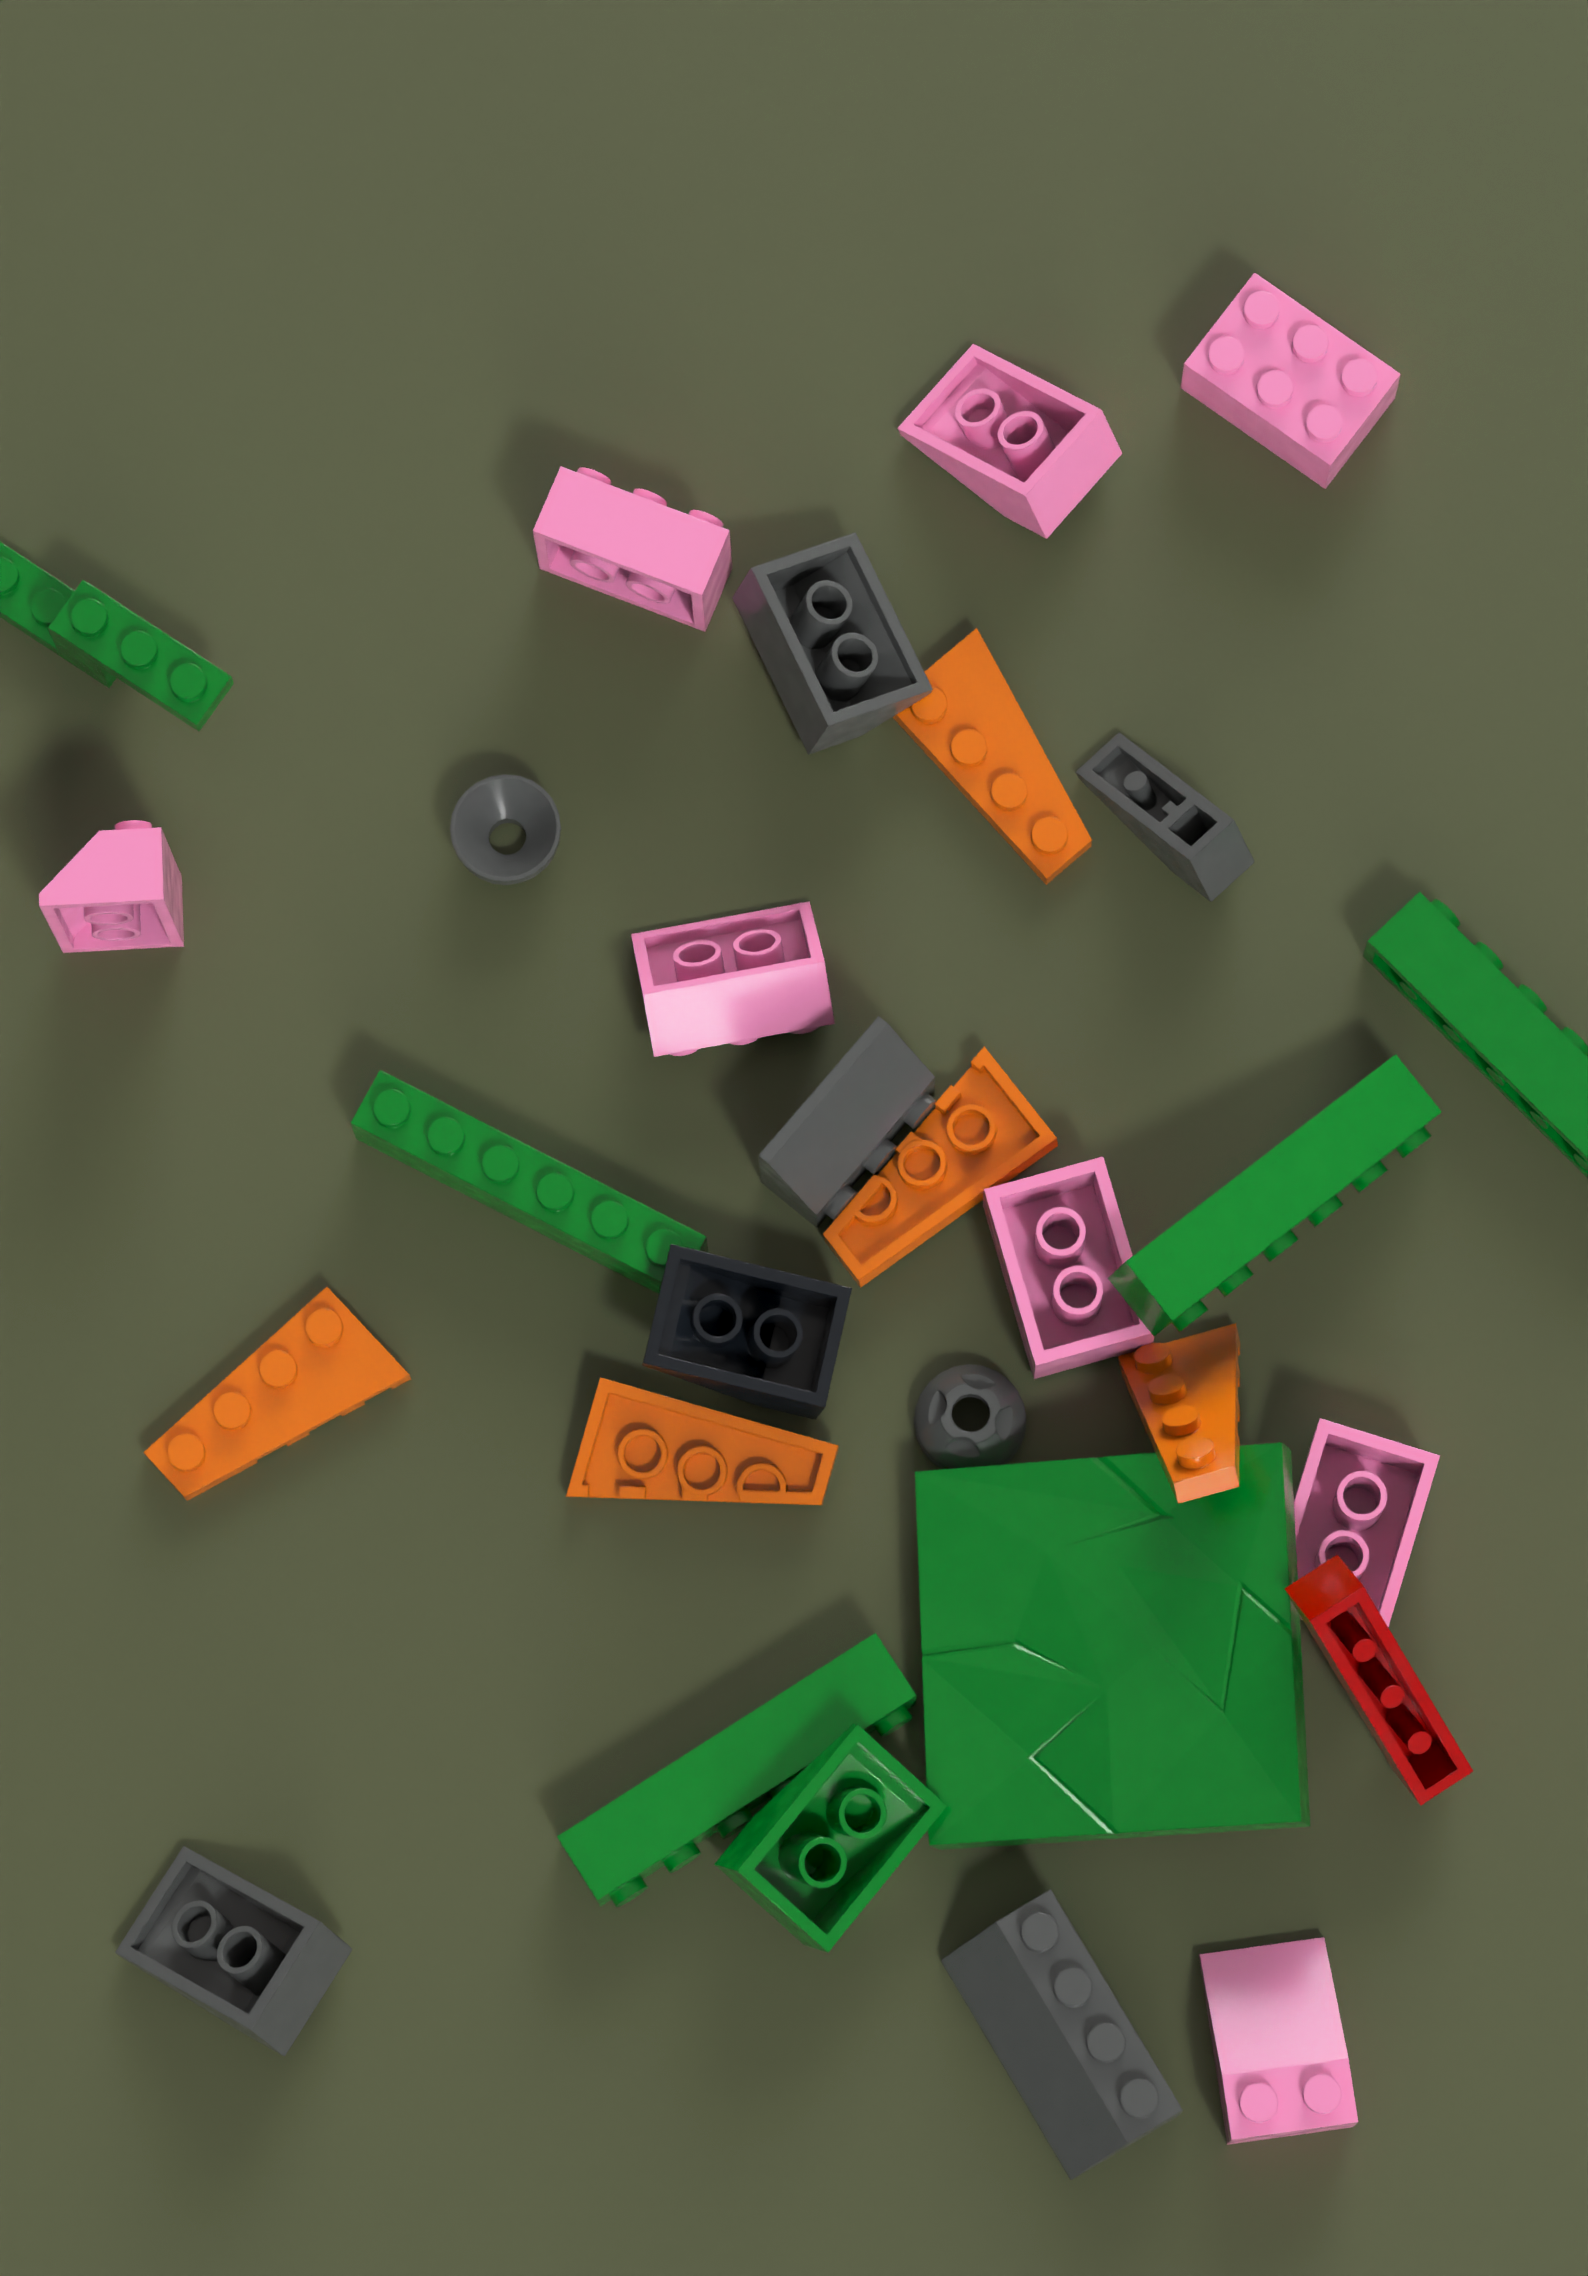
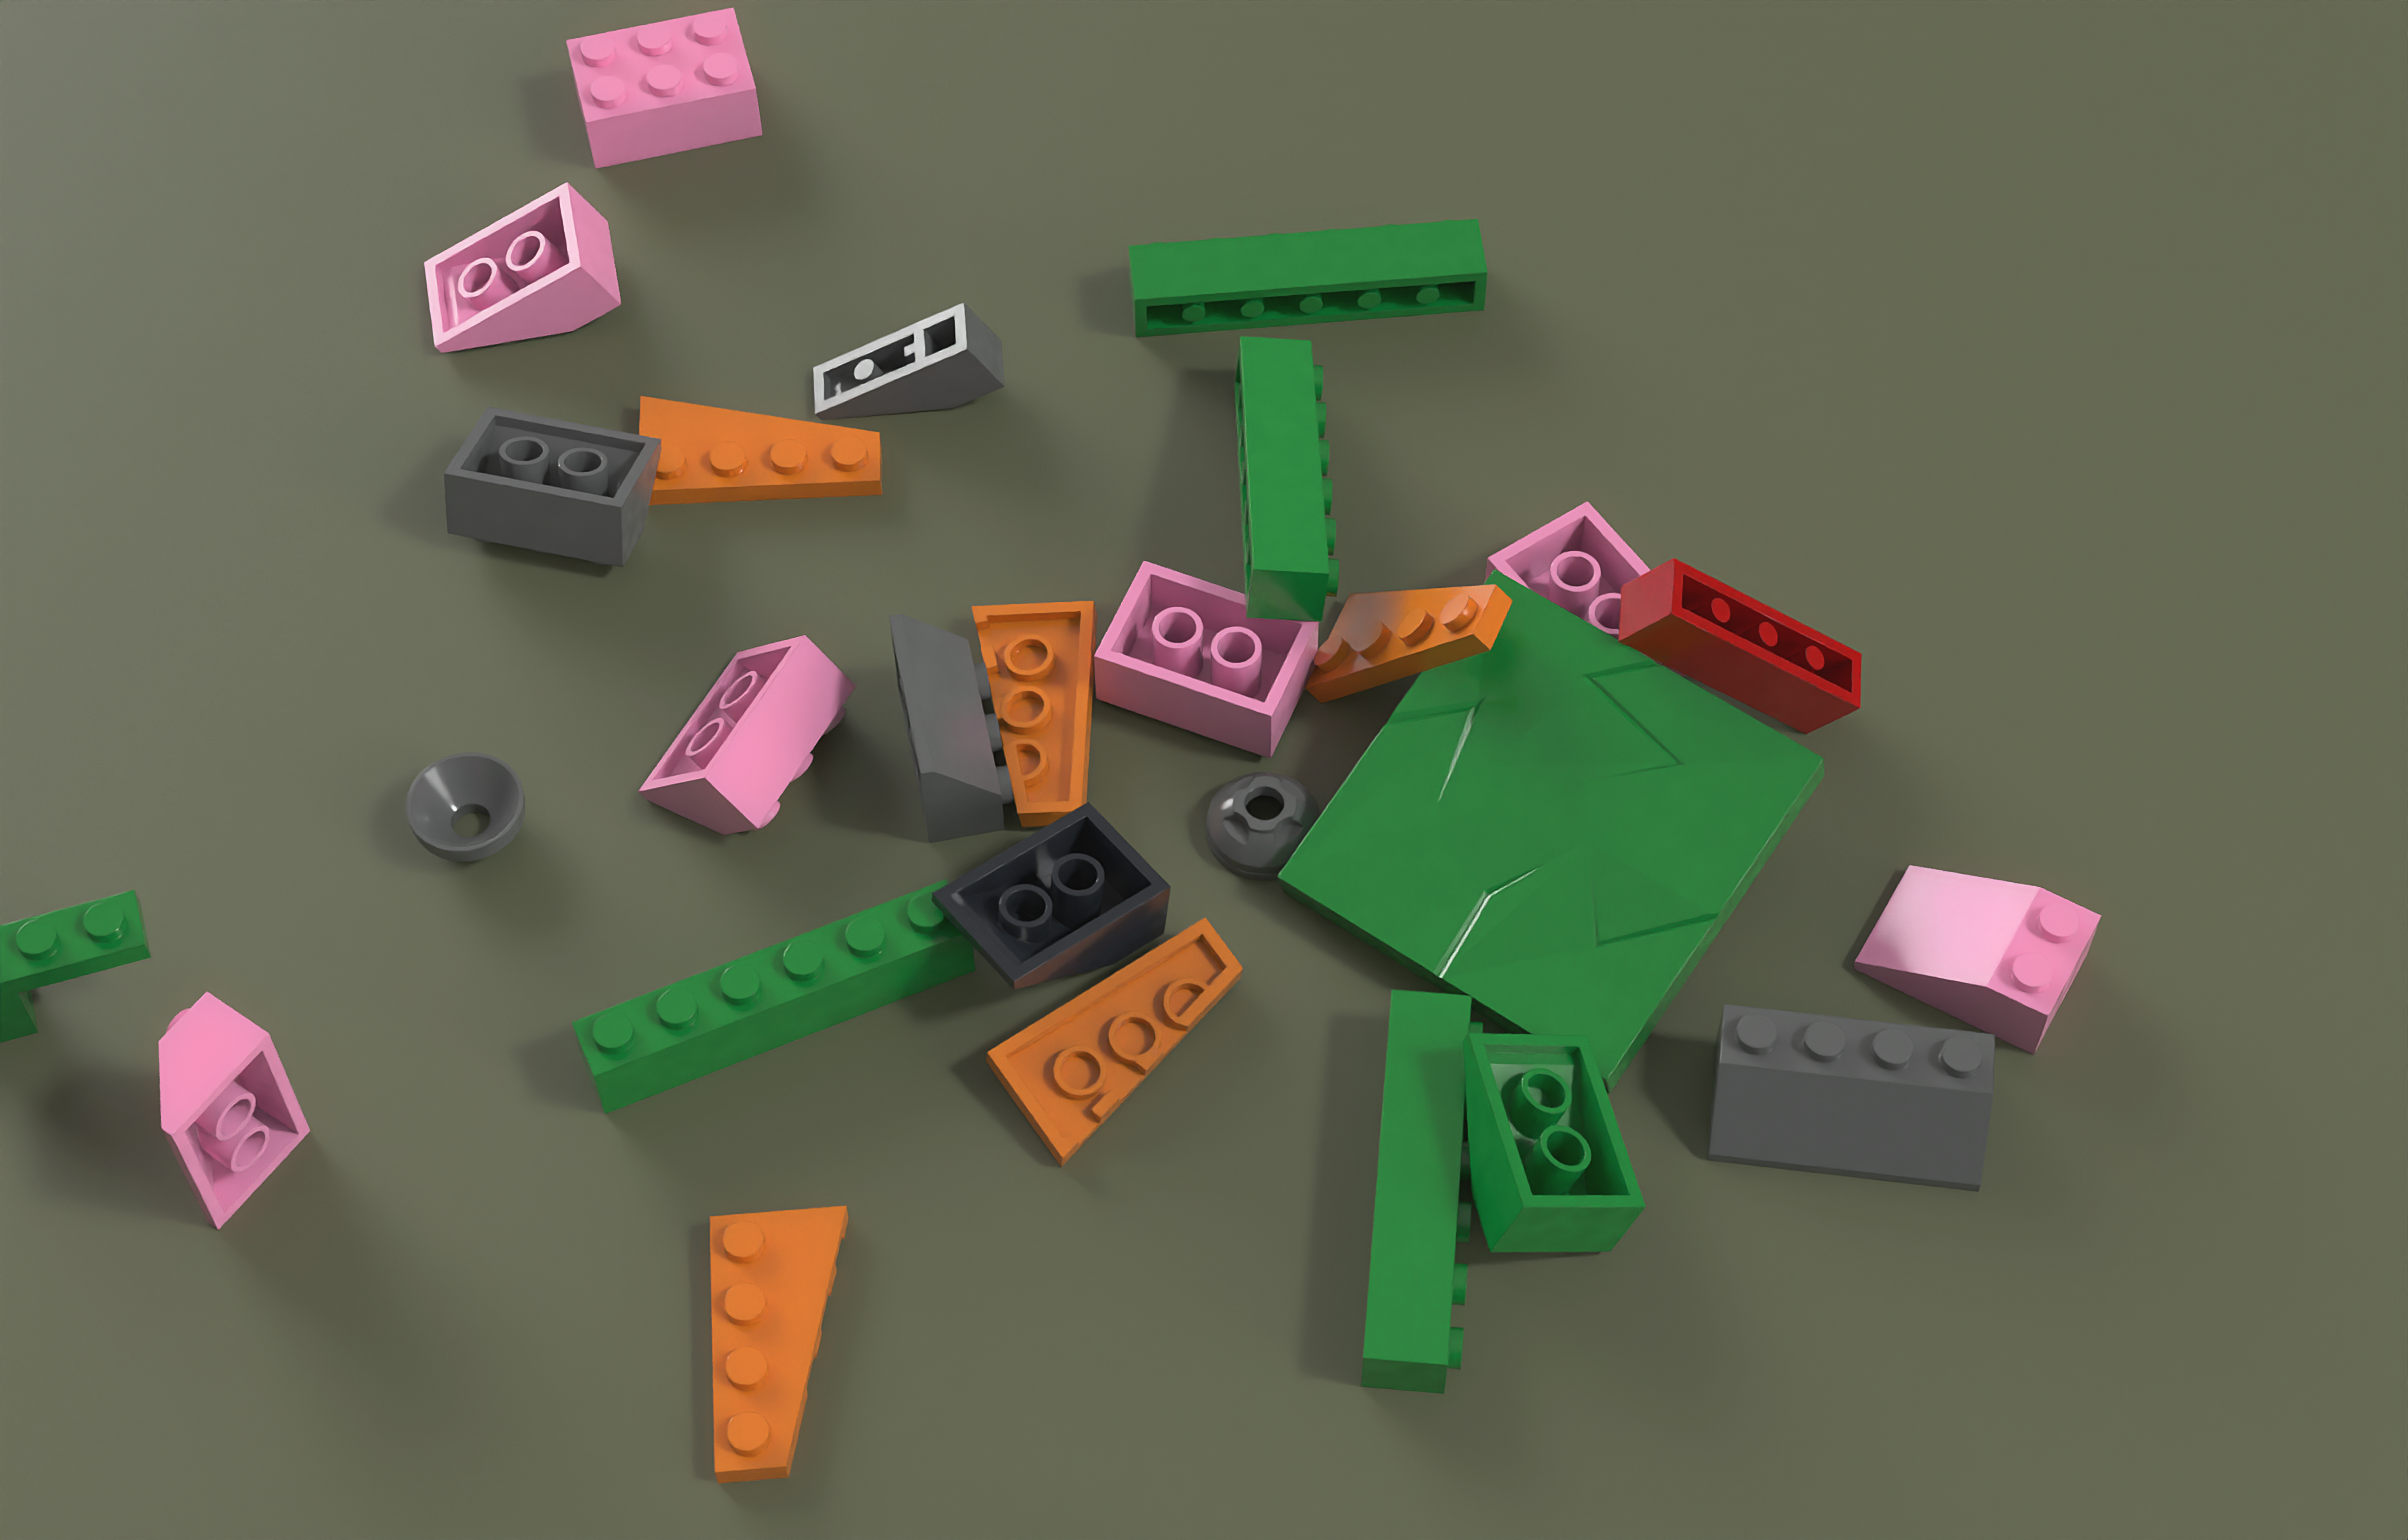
camera: 55 degrees left, 20 degrees down
(633, 547) = (341, 555): bright pink brick -> none

